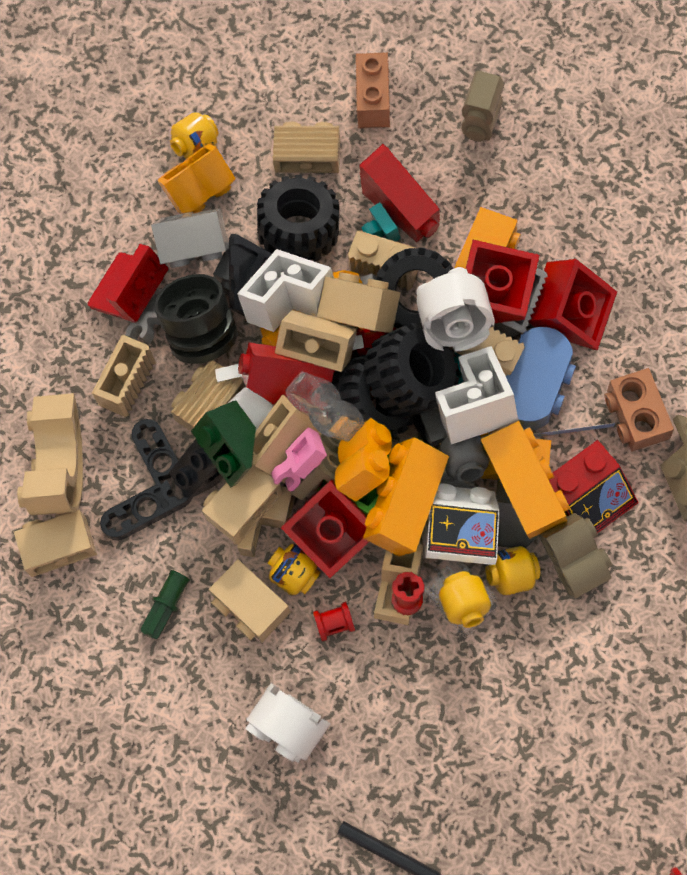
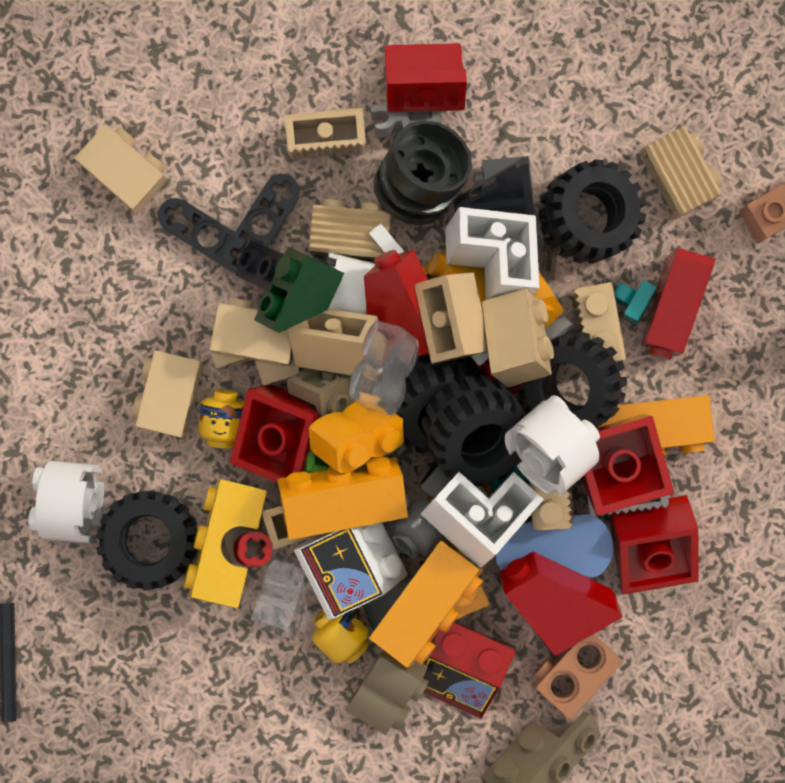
camera: 45 degrees right, 15 degrees up
(57, 471) = (198, 121): tan brick -> none
(164, 604) = (121, 312): dark green axle -> none
(190, 236) = (505, 113): light grey brick -> none
(192, 134) = (629, 45): yellow head -> none
(197, 180) = (579, 79): light orange brick -> none
(302, 458) = (321, 376): bright pink plate -> none
(334, 621) = (192, 486): red bush -> none
(347, 648) = (114, 545): none -> black tyre
(411, 633) = (213, 576): none -> yellow arch
(464, 599) = (276, 609): yellow head -> none
(577, 388) = (558, 601): none -> red slope

